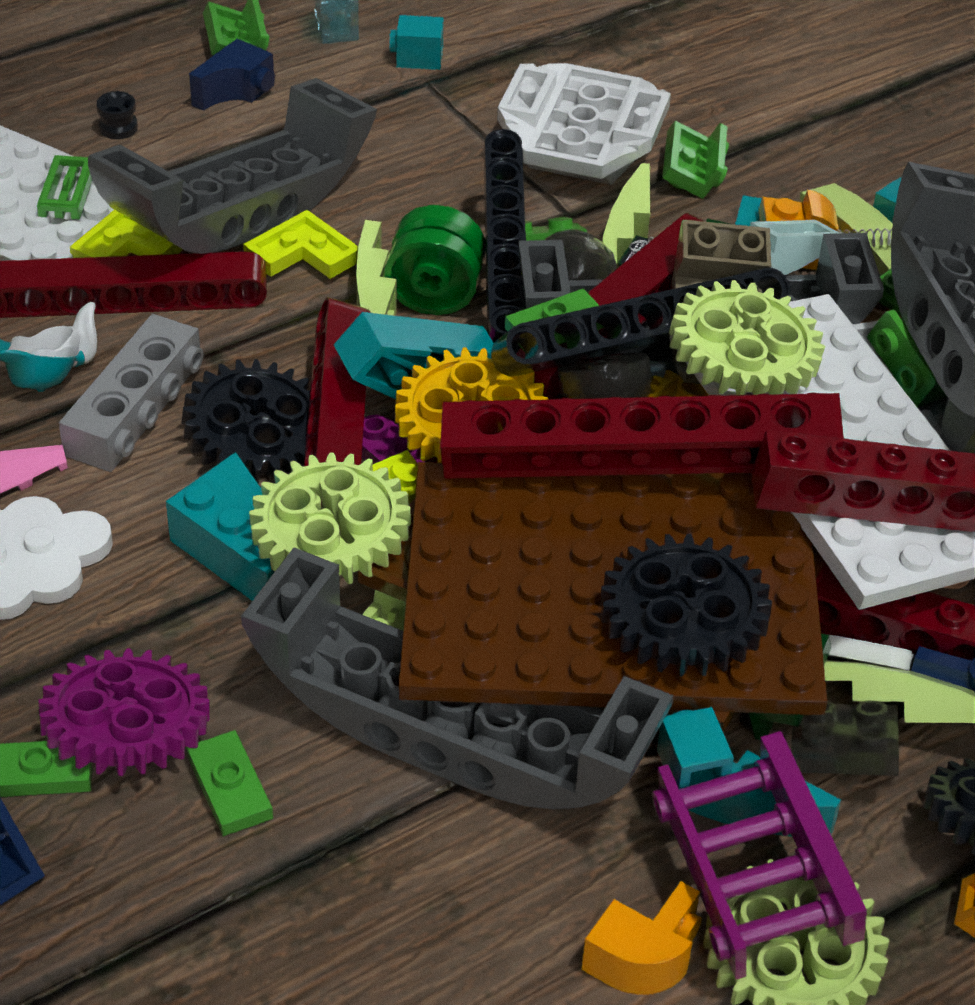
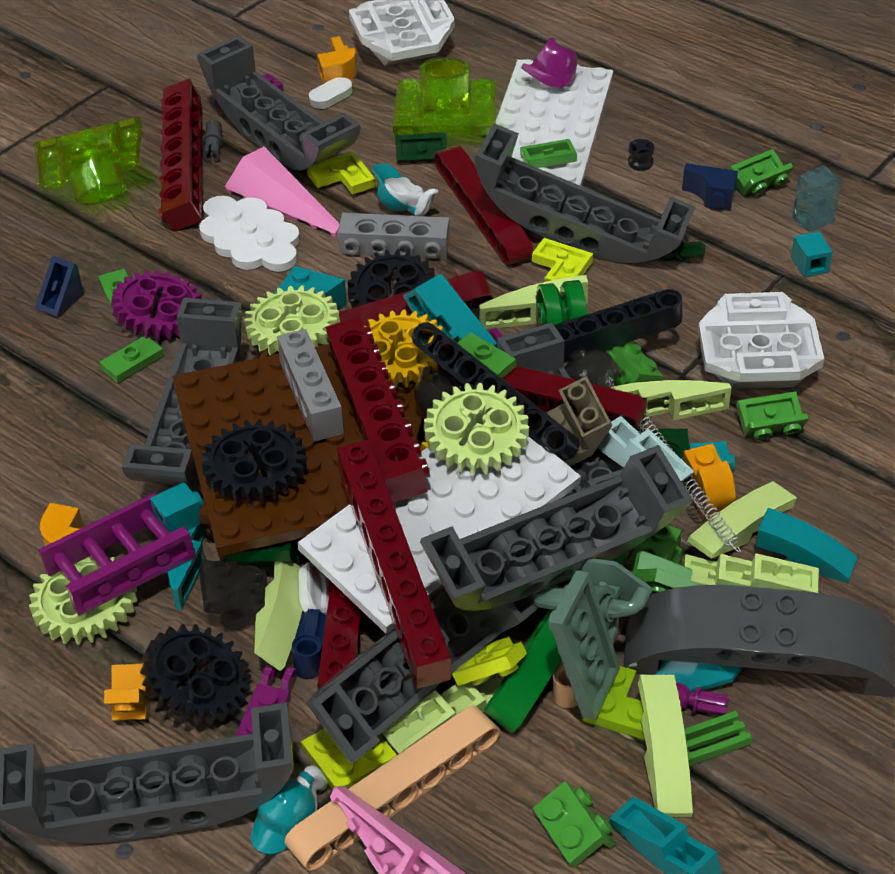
camera: 75 degrees right, 0 degrees up
(543, 503) = (310, 385): none -> light grey brick

